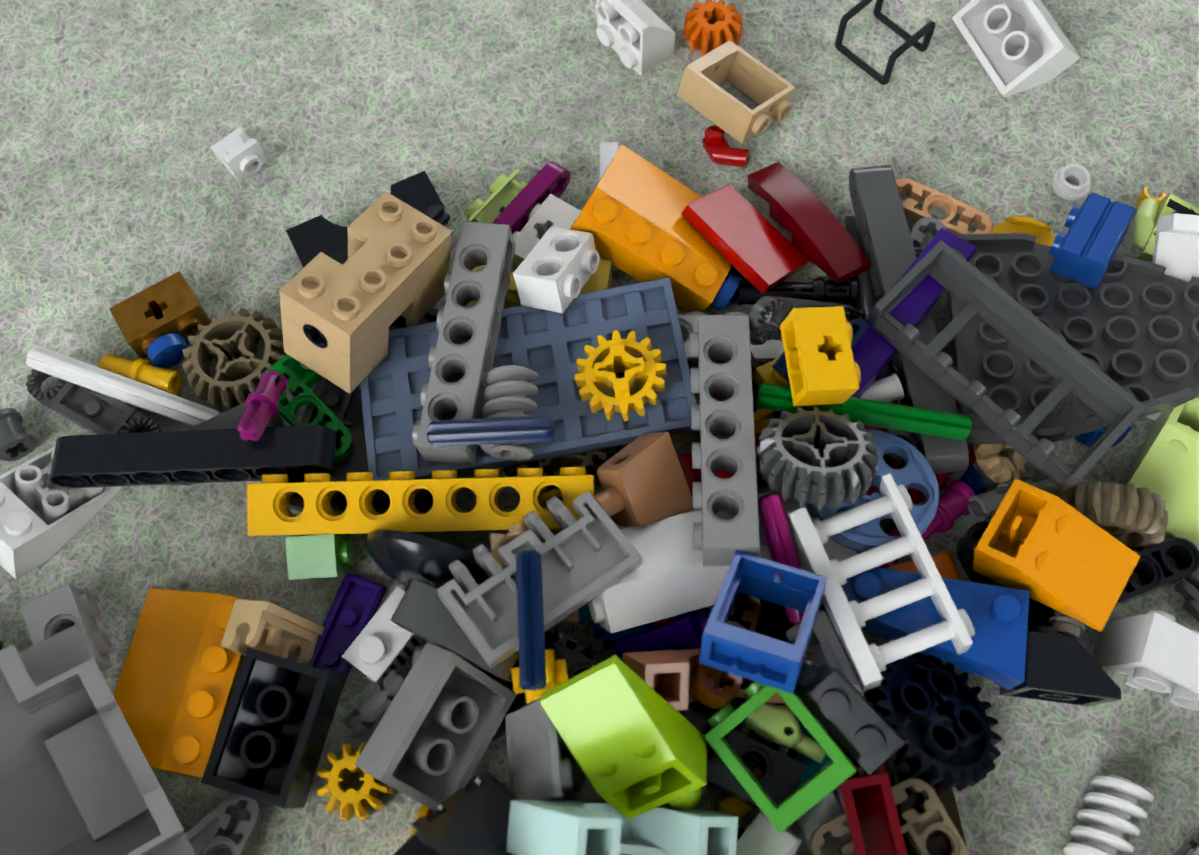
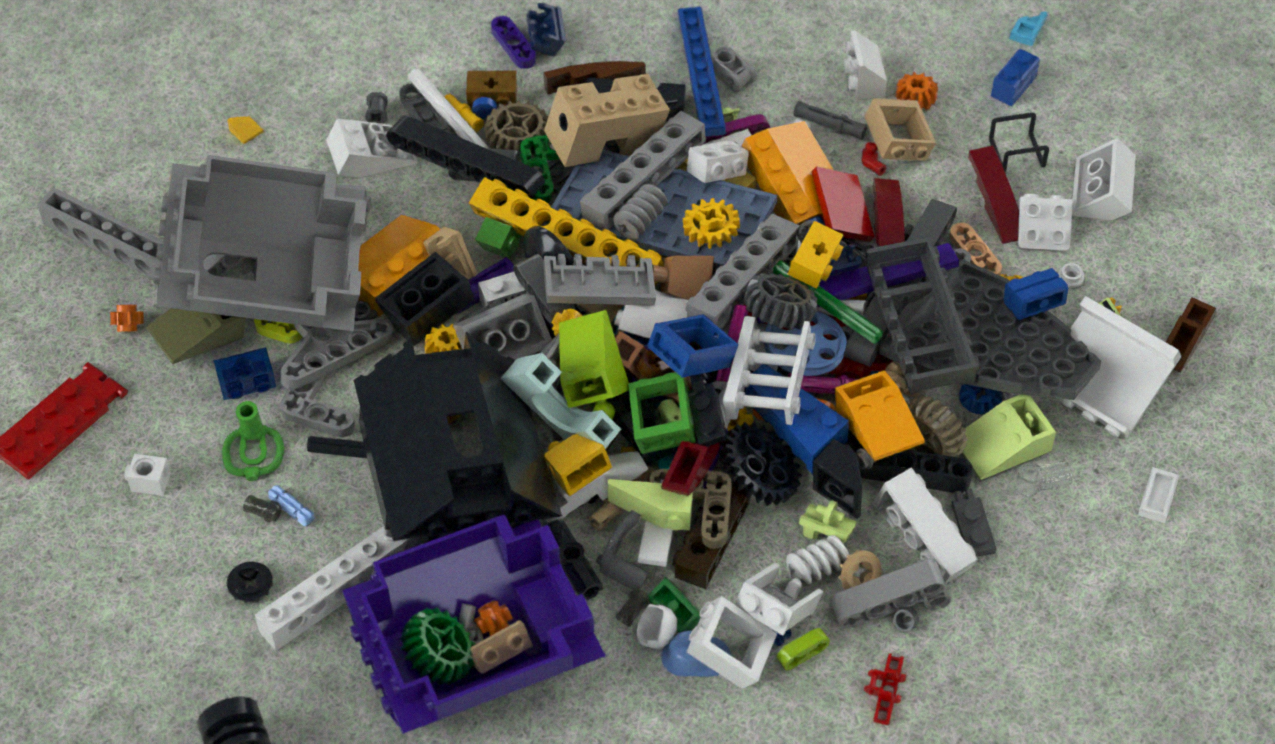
camera: 30 degrees right, 15 degrees down
(136, 213) = (513, 33): none -> dark purple beam
(181, 184) = (546, 29): none -> dark blue hinge
(184, 789) = (365, 309): none -> dark grey plate
(240, 154) = (590, 30): white bracket -> none
(261, 406) = (515, 147): magenta axle -> none
(268, 233) = (579, 73): none -> reddish brown slope
(432, 140) = (701, 70): none -> blue tile
(466, 114) = (732, 69): none -> light grey piece
(491, 431) = (621, 207): dark blue axle -> none
(530, 620) = (579, 287): dark blue axle -> none
(636, 122) = (840, 124): none -> dark grey pin
(910, 115) = (997, 193): none -> dark red slope
(991, 124) = (1044, 222): none -> white bracket
(1078, 753) = (827, 521): none -> yellowish green hips
(1176, 808) = (863, 559): none -> tan gear

